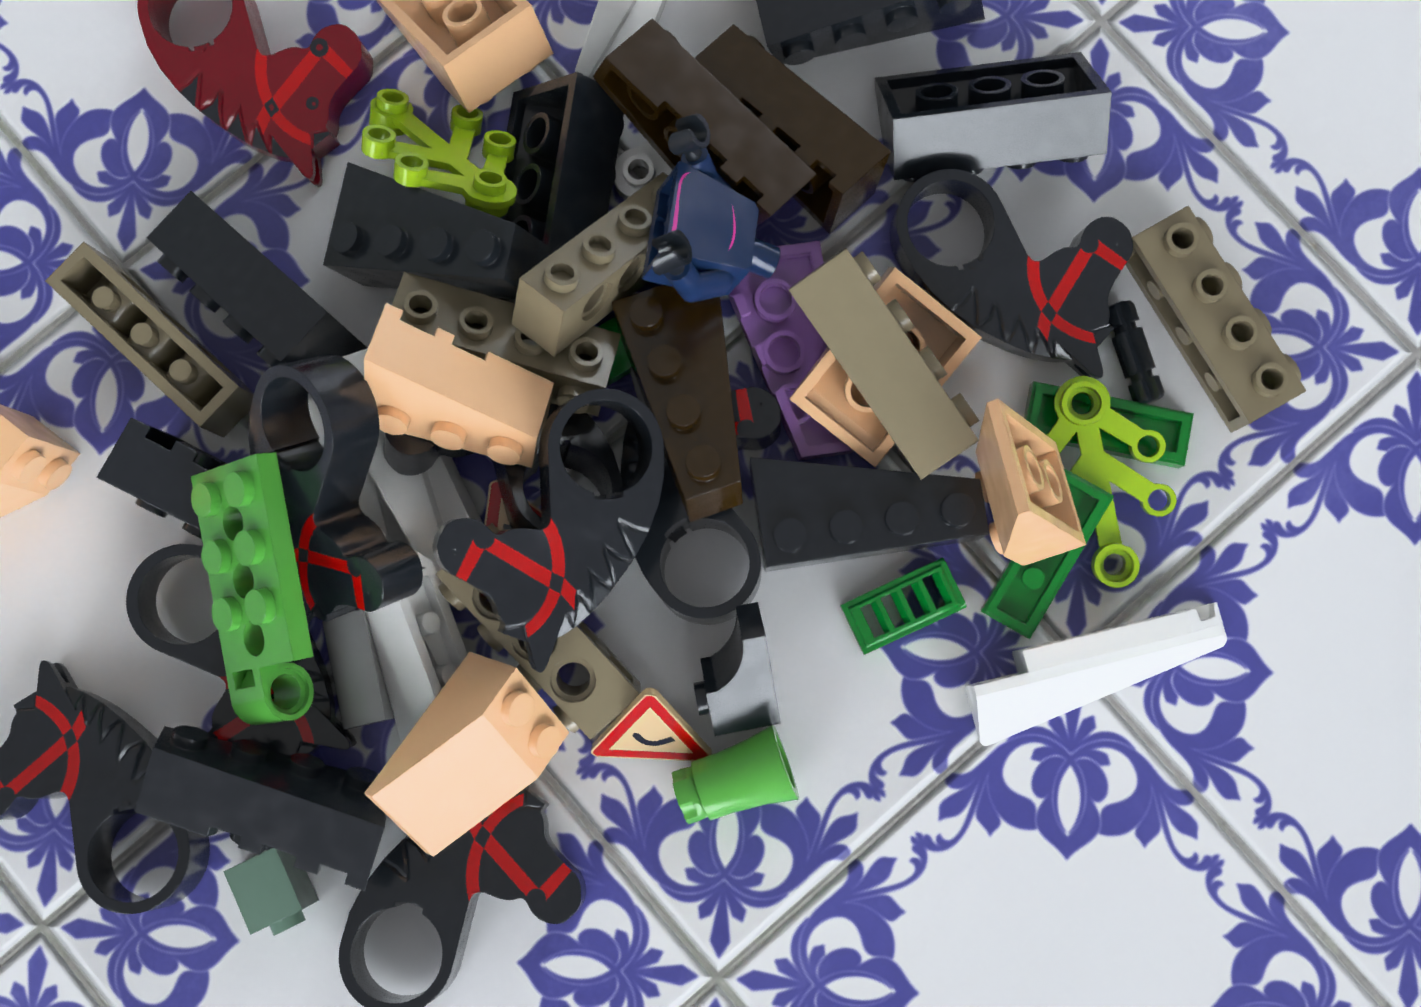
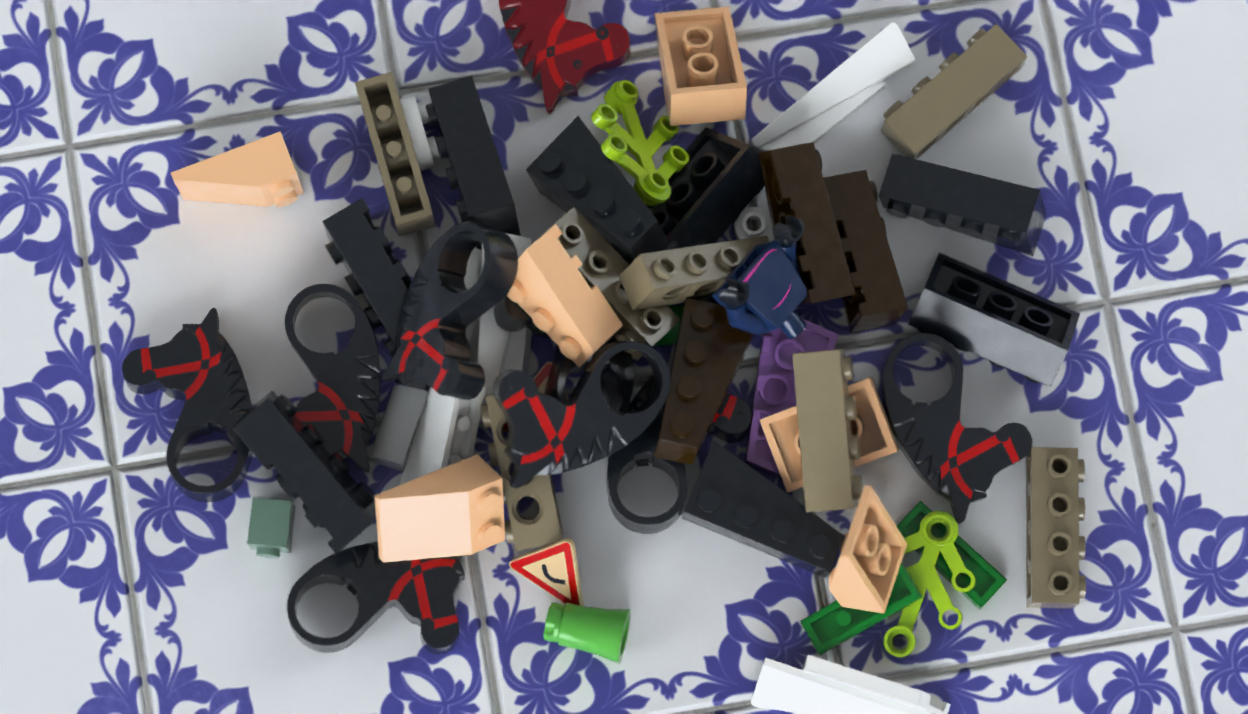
camera: 20 degrees right, 5 degrees down
(157, 284) = (416, 116): none -> white plate
(254, 588) = (344, 397): bright green hinge -> none
(739, 679) = (626, 569): black arch -> none
(945, 584) = (782, 606): green slope -> none
(1134, 353) = (994, 520): black axle -> none

